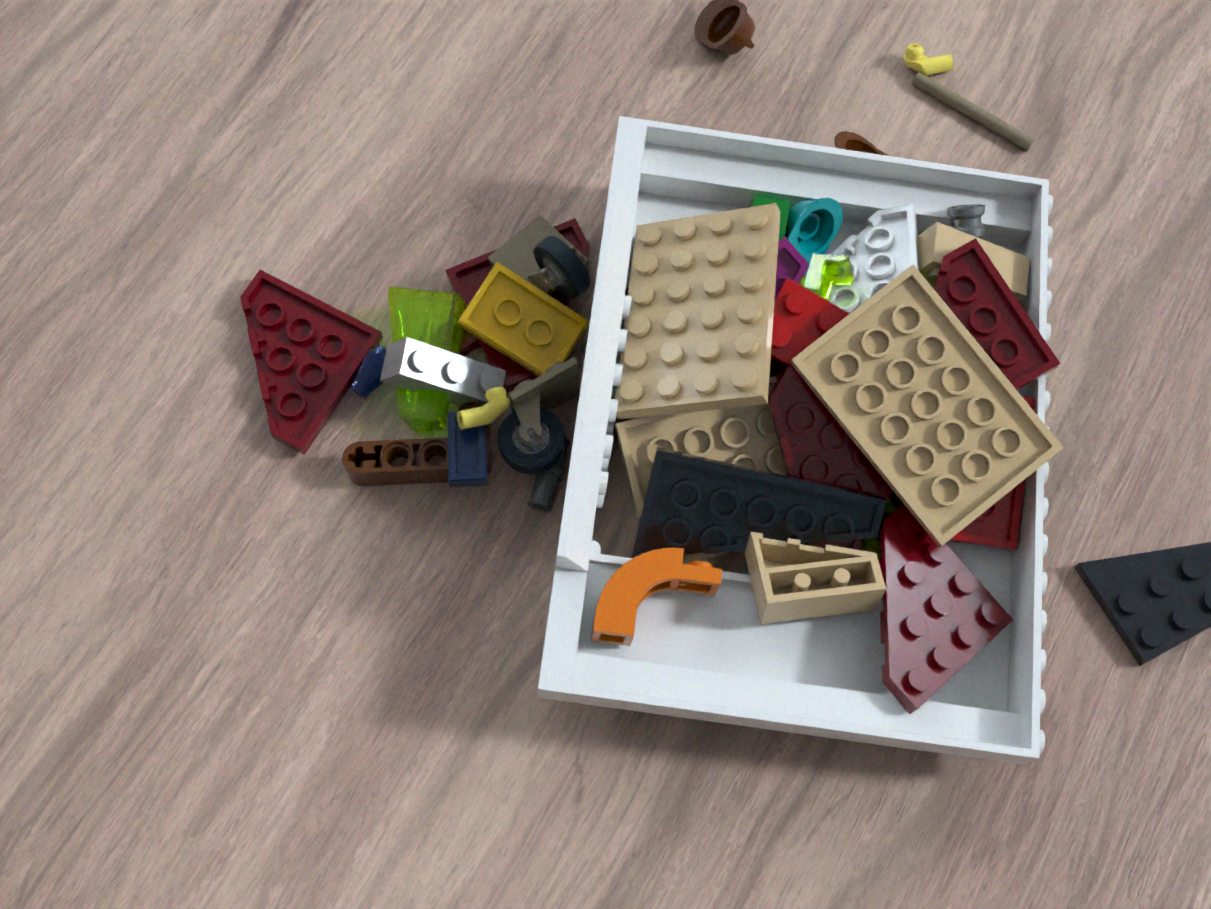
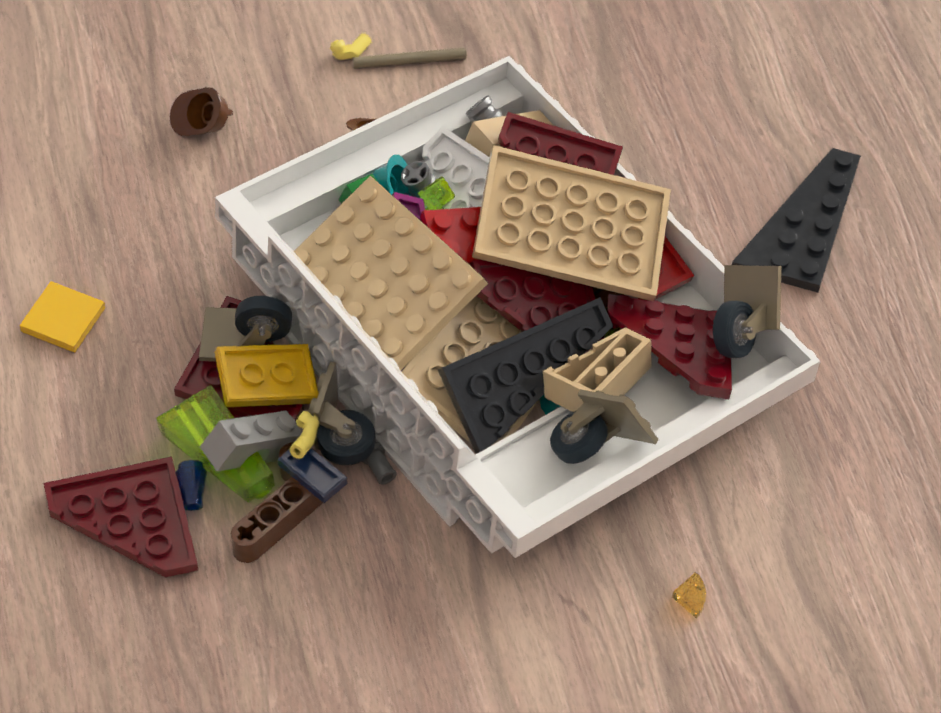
camera: 45 degrees left, 15 degrees down
(431, 129) = (62, 316): none -> yellow tile
(641, 578) = (506, 444): orange arch -> none
(693, 869) = (691, 595): none -> clear yellow tile
(733, 625) = (594, 423): none -> dark tan plate
(836, 237) = (417, 177): none -> flat silver wheel
(1016, 643) = (748, 308): none -> dark tan plate

